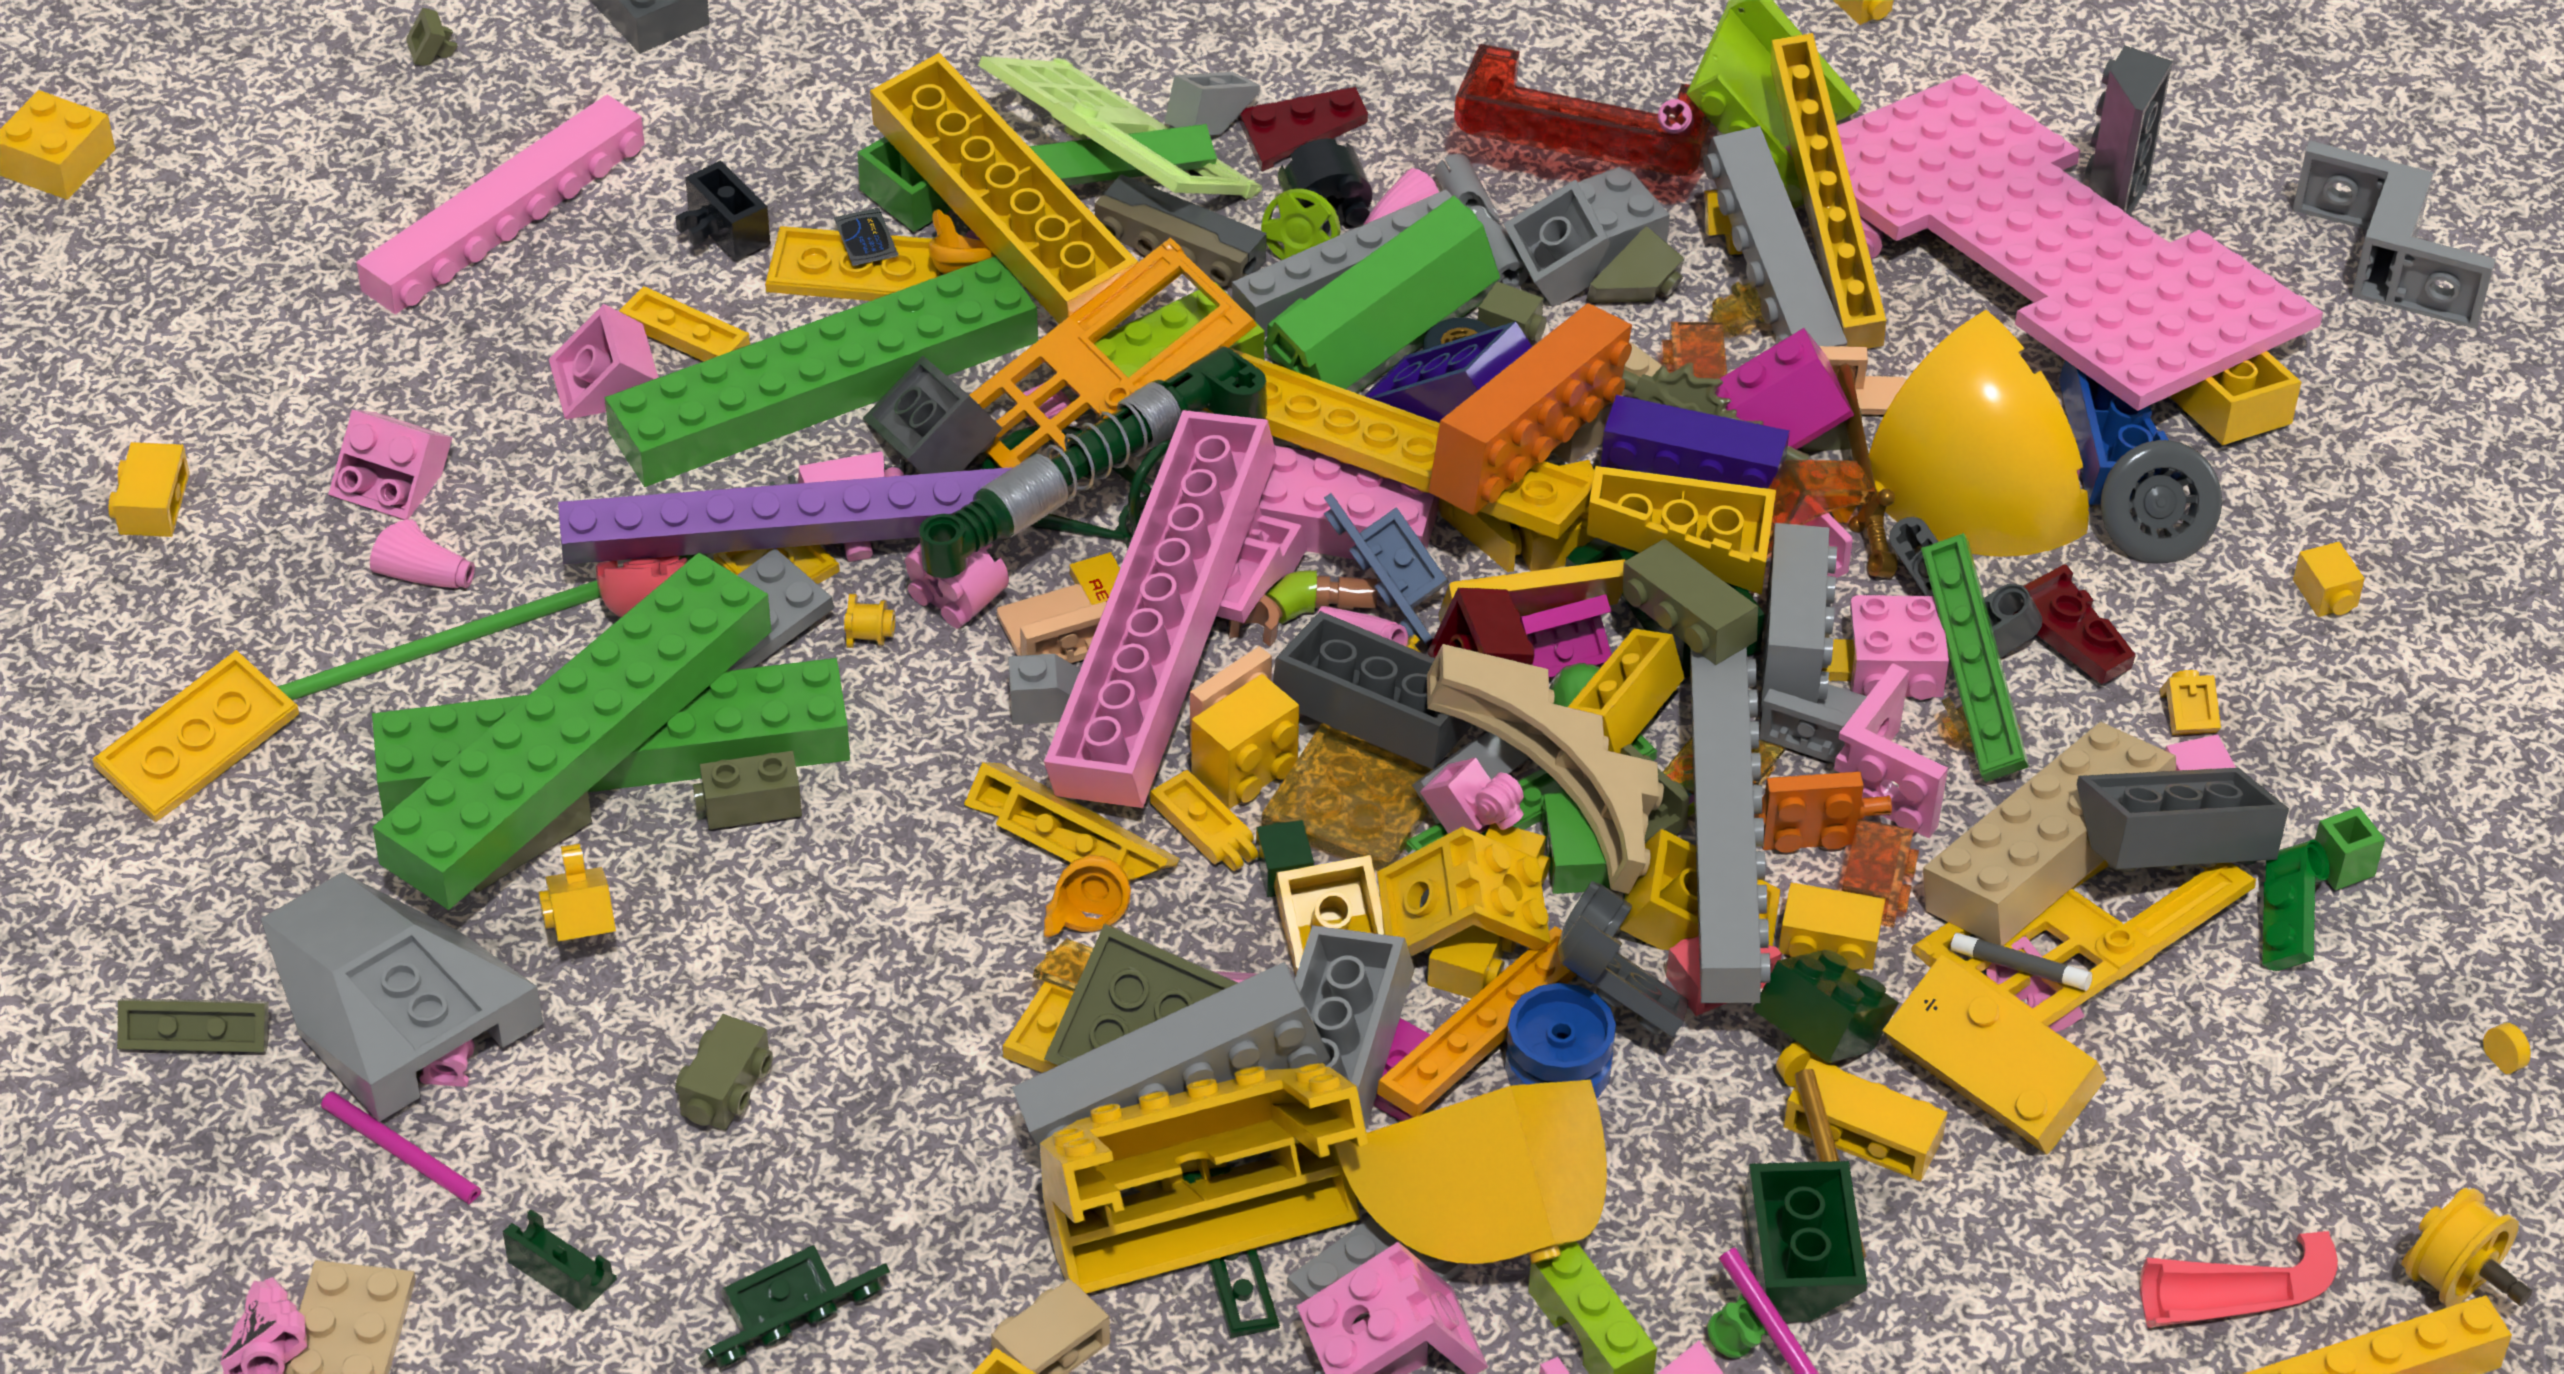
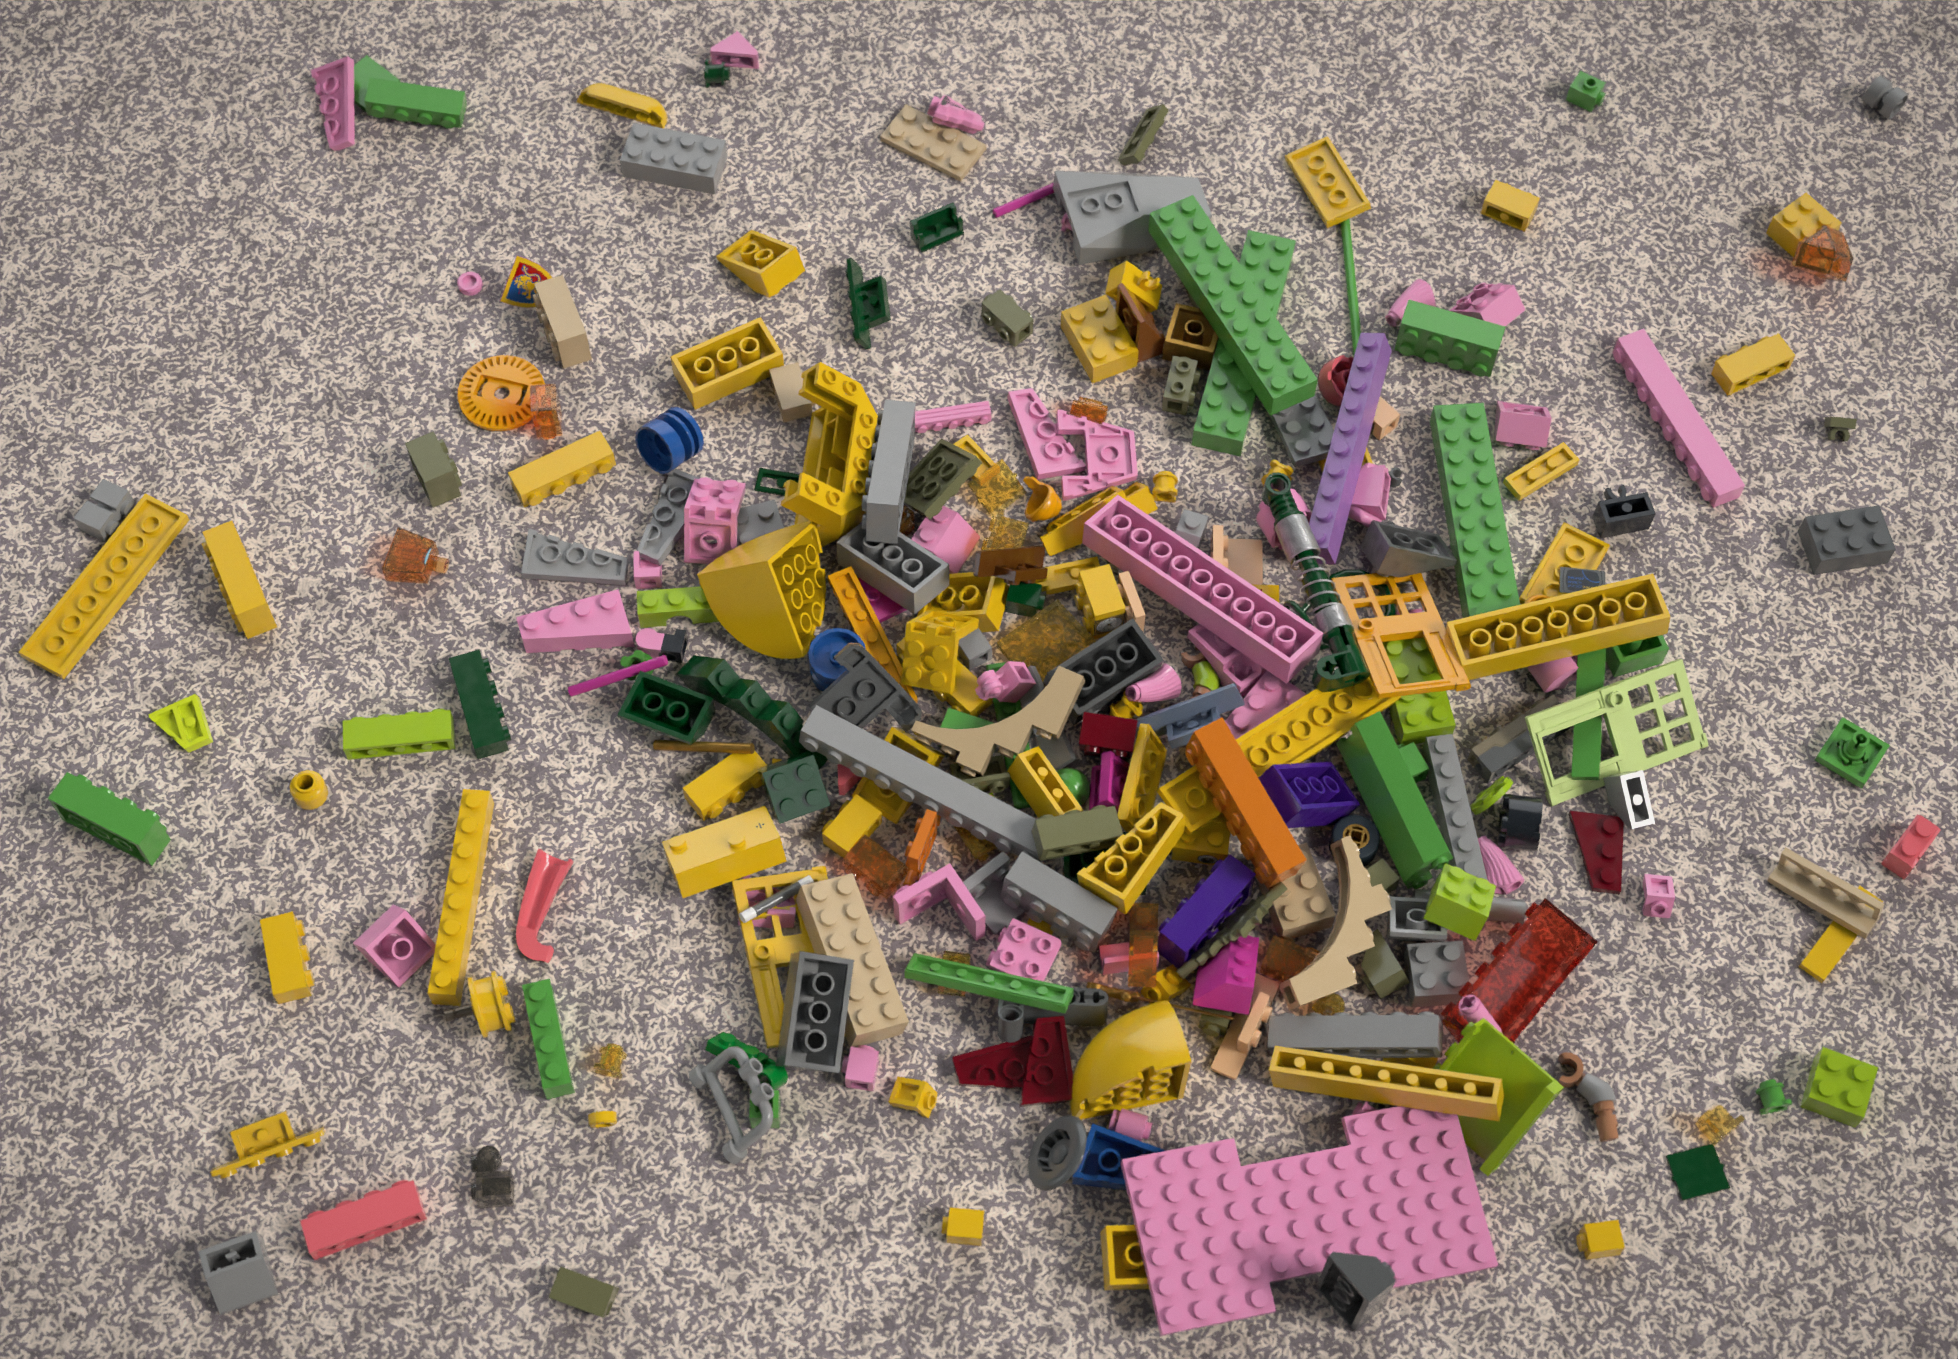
camera: 115 degrees right, 15 degrees up
(115, 90) = (1824, 254): none -> clear orange slope
(357, 146) = (1752, 364): none -> yellow brick
(491, 474) = (1449, 338): none -> bright green brick
(644, 801) = (1190, 336): none -> pearl gold slope
(666, 869) = (1139, 324): none -> dark orange slope
(703, 930) = (1099, 338): none -> yellow brick
(862, 899) = (1089, 408): none -> clear orange brick
(944, 843) = (1108, 455): none -> bright pink wing
(957, 942) = (1046, 449): none -> bright pink wing
(961, 752) = (1165, 487): none -> yellow brick
(972, 1090) = (952, 416): none -> bright pink piece
(1190, 921) = (1005, 532): none -> clear yellow bracket
(1257, 844) = (1012, 564): none -> reddish brown bracket
(1336, 48) = (1658, 895): none -> bright pink bracket
(1513, 183) = (1460, 901): none -> lime brick
(1642, 292) = (1350, 935): none -> tan arch
(1667, 40) = (1596, 1092): none -> nougat piece
(1674, 1308) = (663, 644): none -> leg
(1722, 1129) = (748, 699): none -> dark green arch
(2045, 561) = (1049, 1065): none -> dark red wing
(2327, 848) = (705, 1075): none -> light grey bar
(2417, 1074) = (610, 1061): none -> clear yellow brick
(2446, 1162) = (548, 1039): none -> bright green brick

